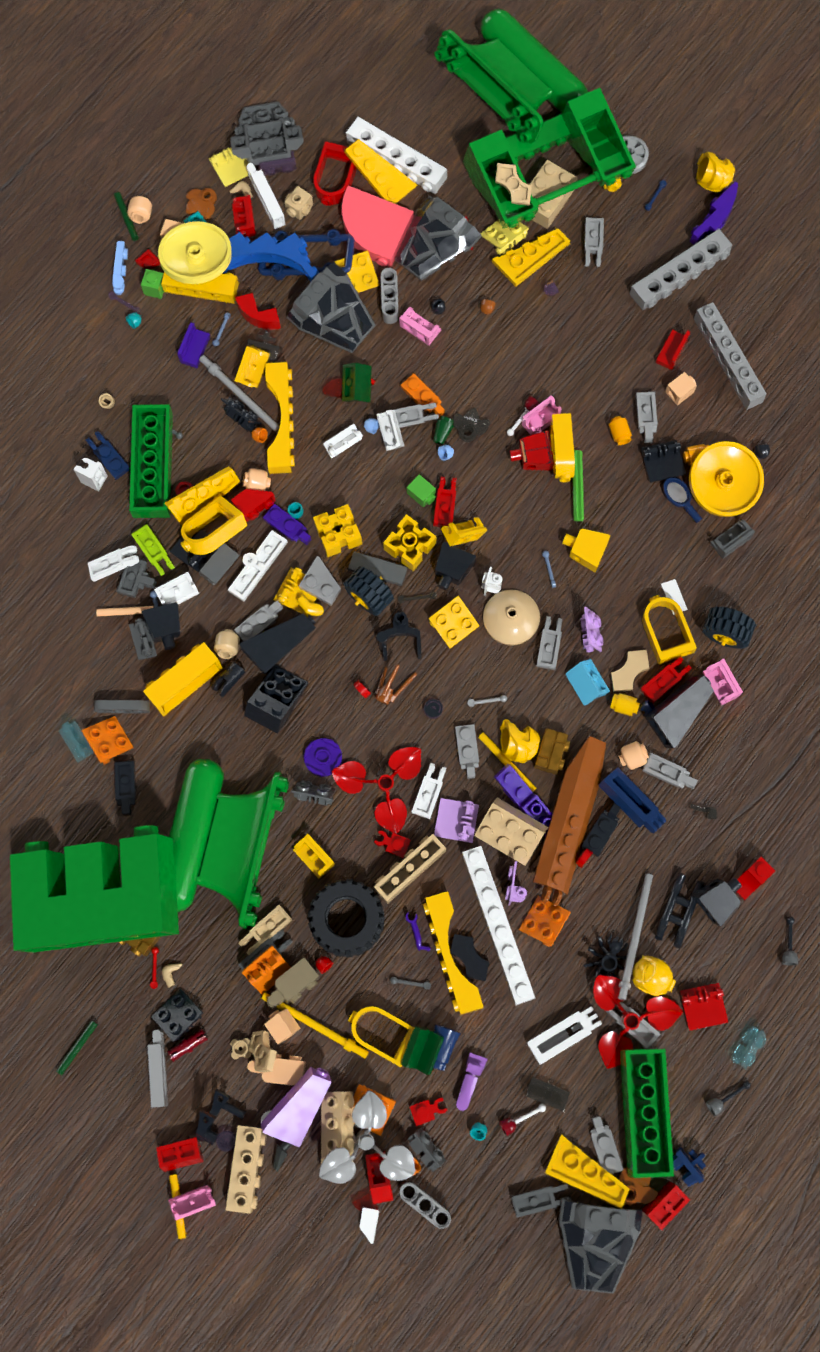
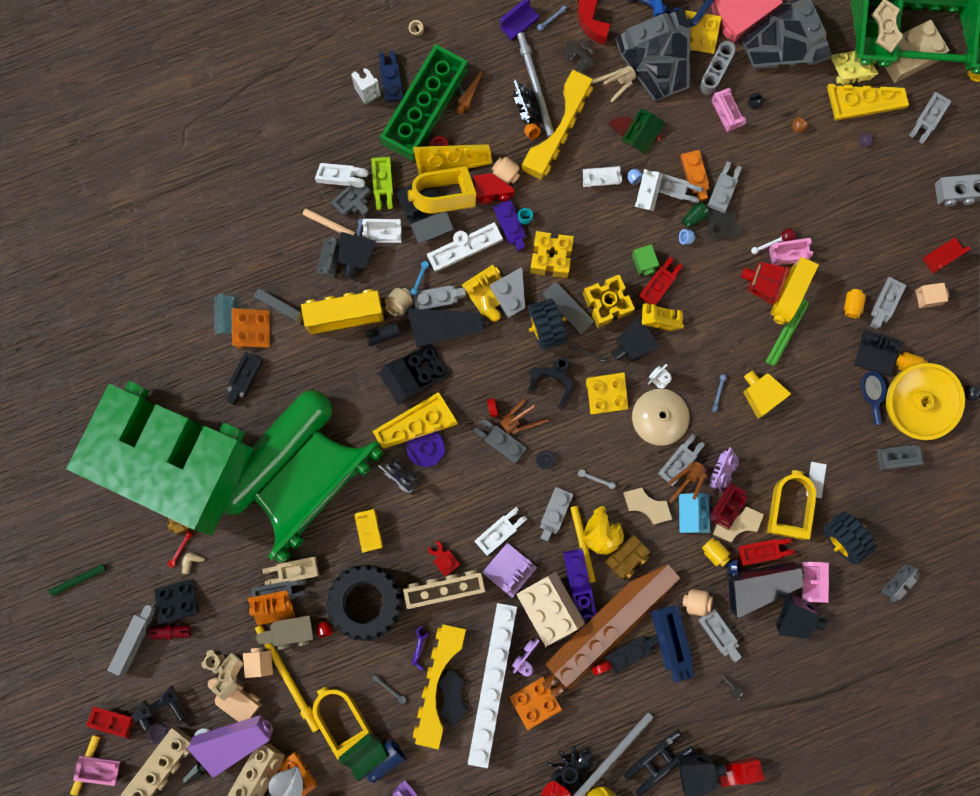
camera: 25 degrees right, 5 degrees up
(186, 439) = (466, 99): none -> dark orange piece
(231, 601) = (424, 265): none -> dark azure hinge
(252, 366) = (559, 66): yellow hinge -> none
(302, 738) = (416, 422): none -> yellow wing
(312, 345) = (623, 75): none -> tan plant
(385, 714) = (501, 441): none -> dark grey hinge
(388, 814) = (456, 531): red plant -> none
(454, 394) = (724, 189): none -> light grey hinge
(553, 698) = (655, 510): none -> tan tile
(568, 646) = (695, 472): none -> dark orange plant
(613, 659) = (729, 506): none -> dark red hinge
(726, 719) = (799, 618): none -> black torso
(795, 634) = (906, 577): none -> dark grey hinge

